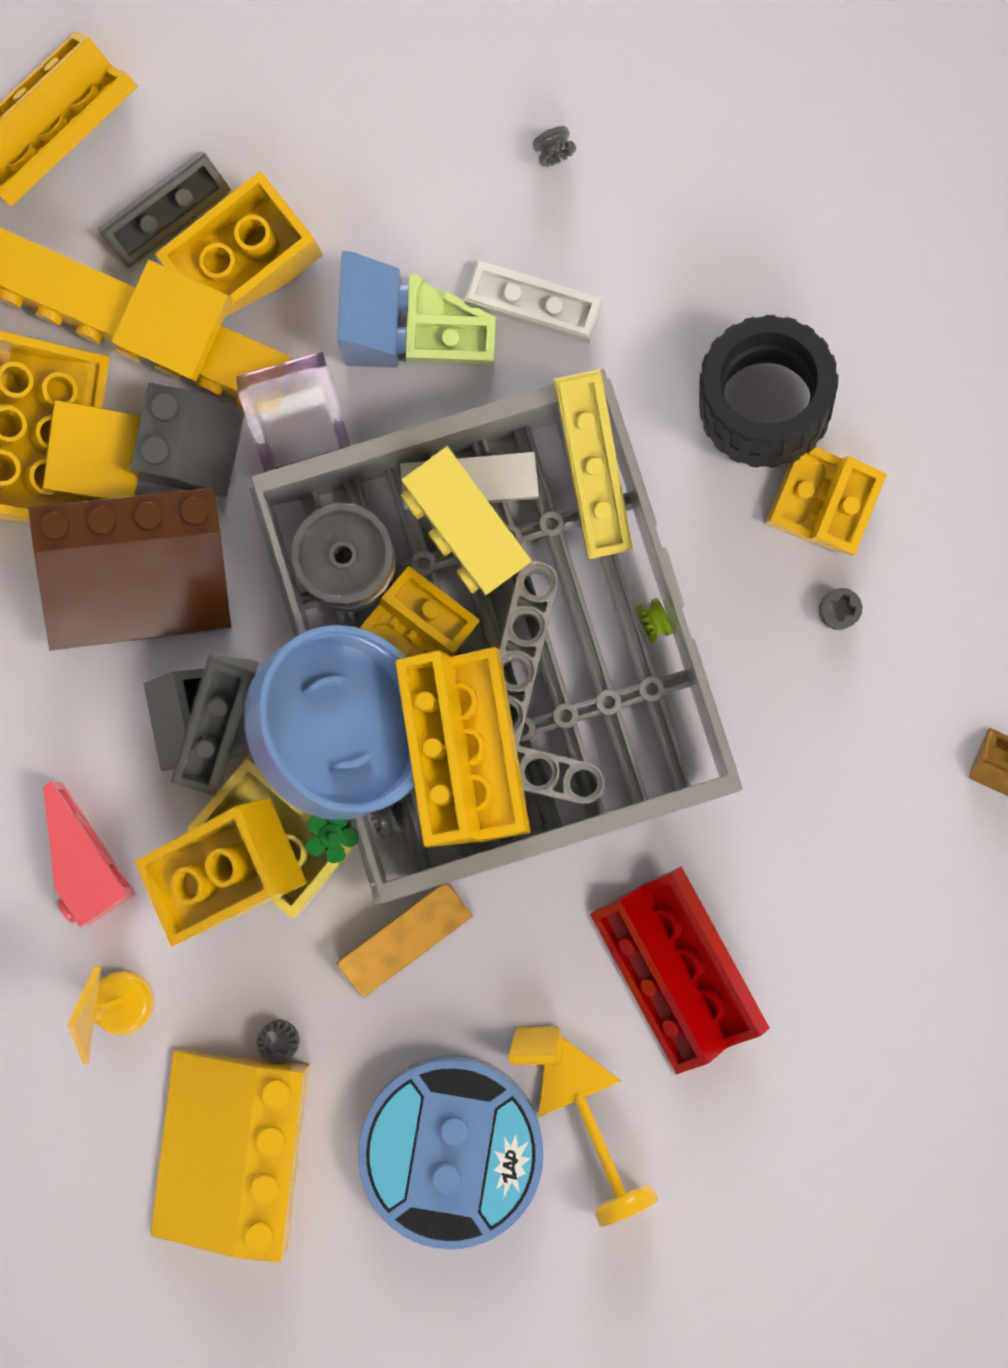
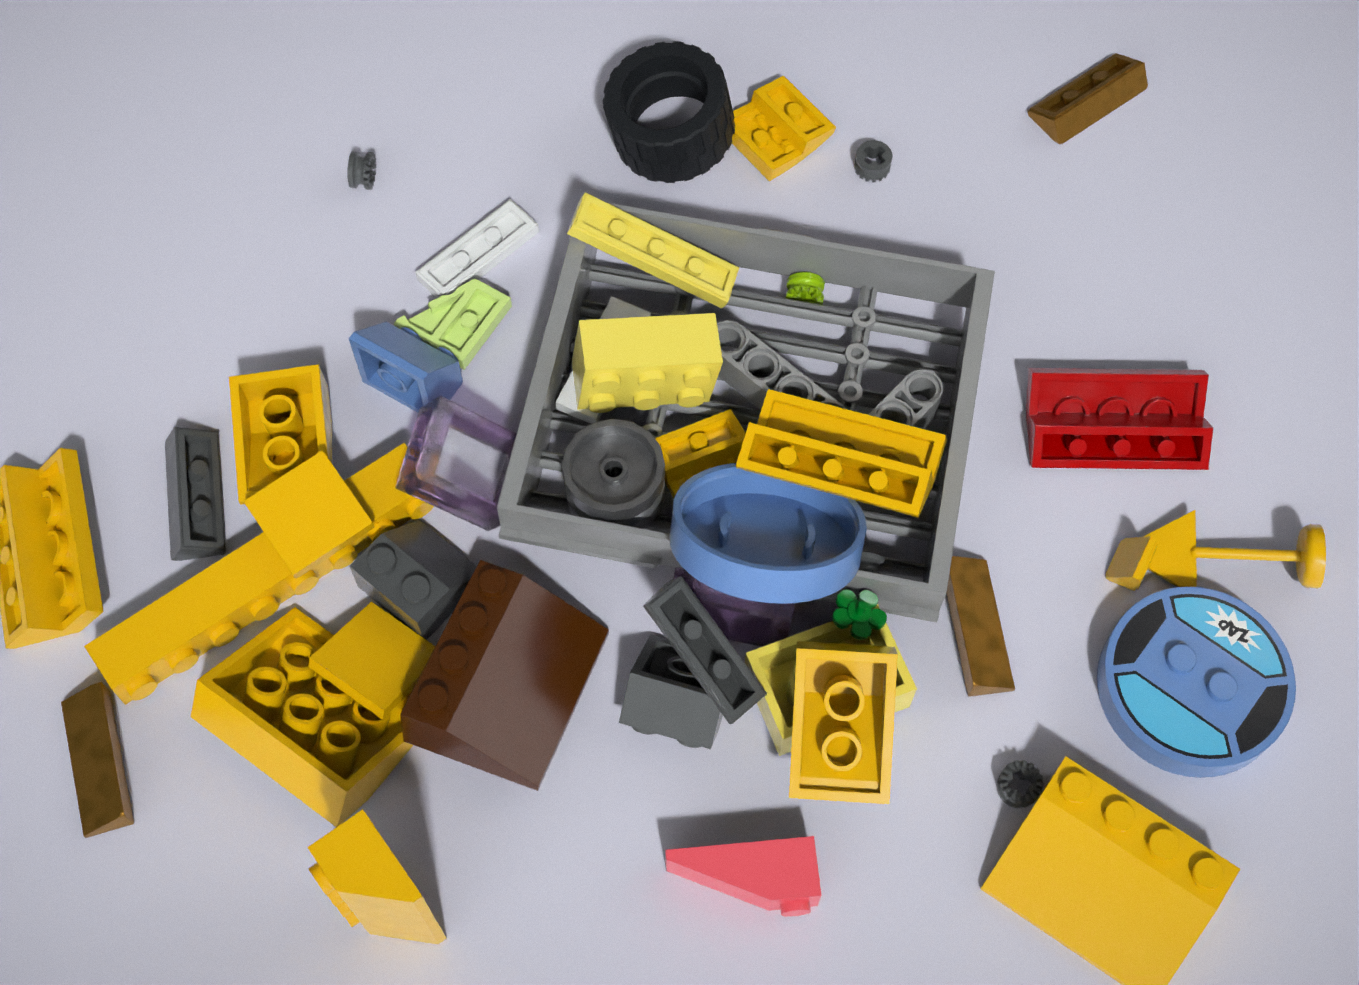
camera: 60 degrees left, 20 degrees down
(116, 1004) = (913, 908): yellow piece -> none

